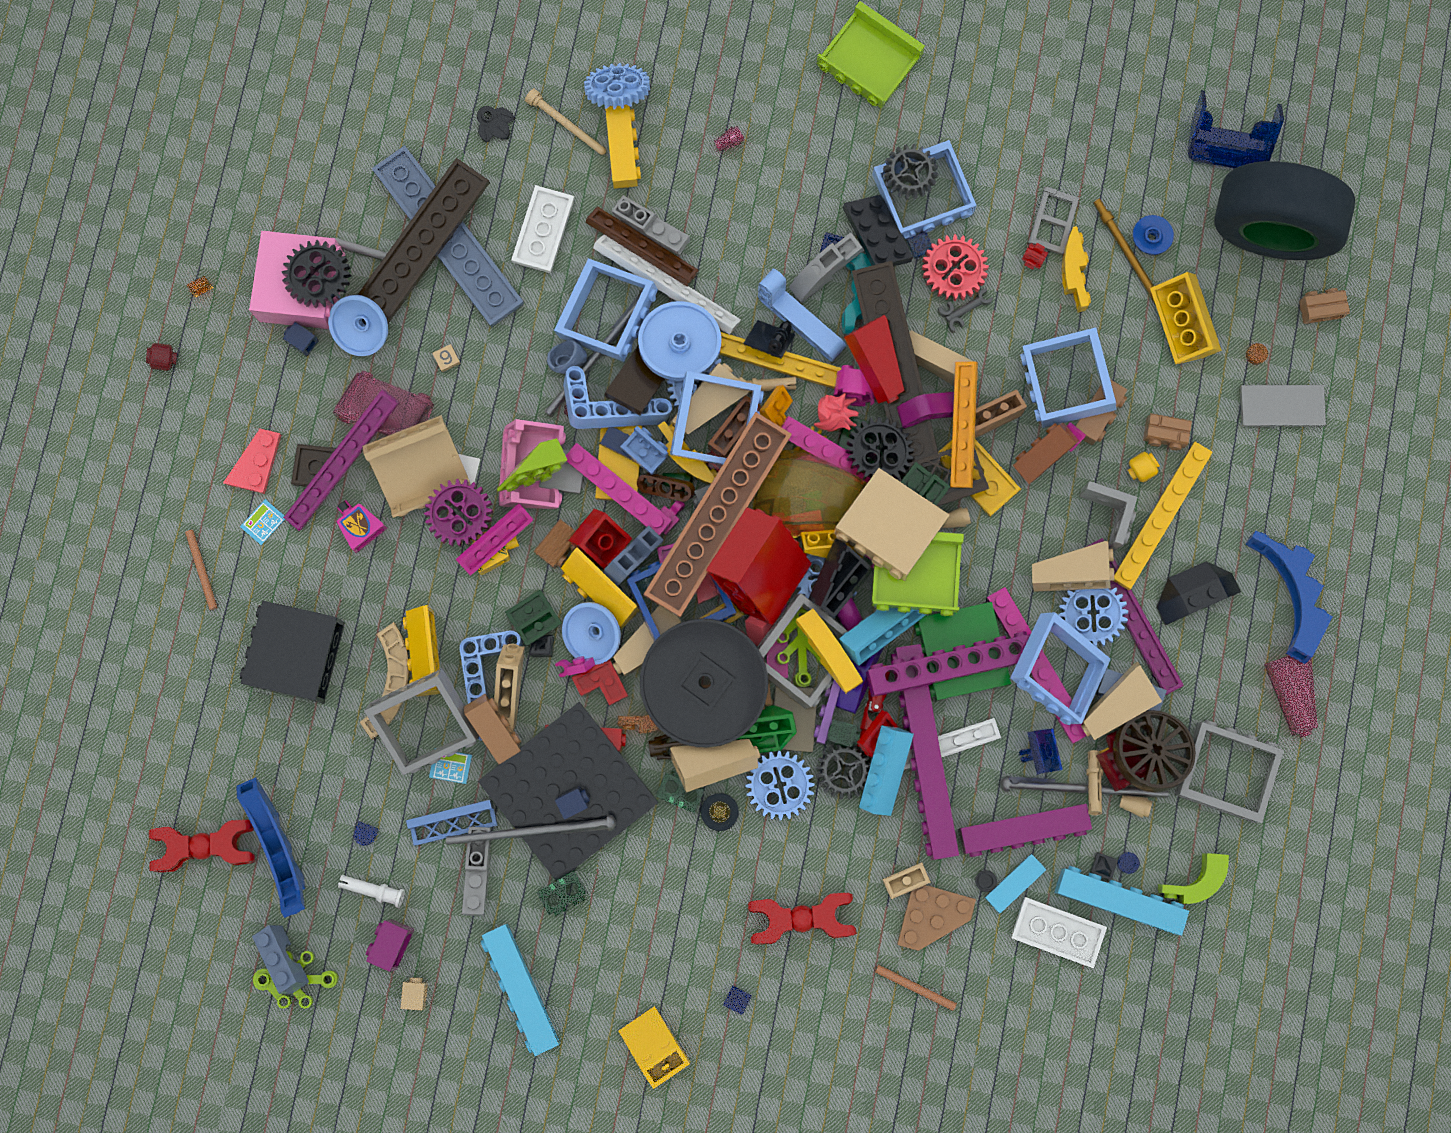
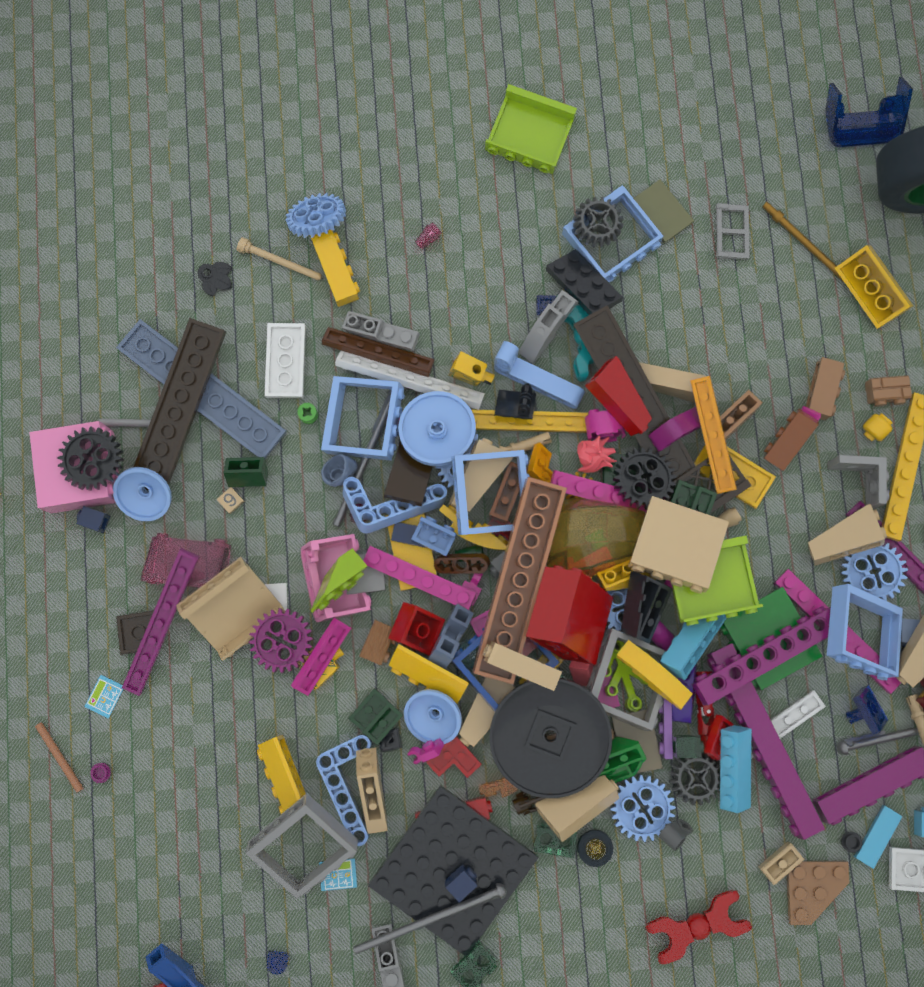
camera: 15 degrees left, 0 degrees up
(238, 596) = (100, 772): none -> magenta plate
(256, 463) = (83, 644): coral wing -> none
(292, 652) = (163, 814): black brick -> none
(358, 525) = (192, 676): torso -> none
(397, 672) = (265, 801): tan tile -> none
(450, 814) = (349, 923): medium blue fence -> none
(470, 332) = (246, 472): none -> dark green brick
(492, 728) = (368, 834): medium nougat brick -> none
(553, 294) = (310, 416): none -> bright green wheel
(693, 597) = (521, 665): none -> tan slope
(726, 286) = (465, 365): none -> yellow torso
(805, 818) = (675, 833): none -> dark grey piece
(915, 987) = (818, 959): nougat bar -> none
(919, 244) = (623, 283): clear blue tile -> none
(953, 316) = (670, 340): dark grey bar -> none
(968, 279) = (645, 288): coral gear -> none
(986, 179) = (664, 210): none -> olive tile
(1034, 256) = (726, 267): red gear -> none
(1074, 262) = (761, 262): yellow slope -> none
(1077, 412) = (819, 353): light blue window -> none
(1155, 226) = (828, 215): blue dish -> none

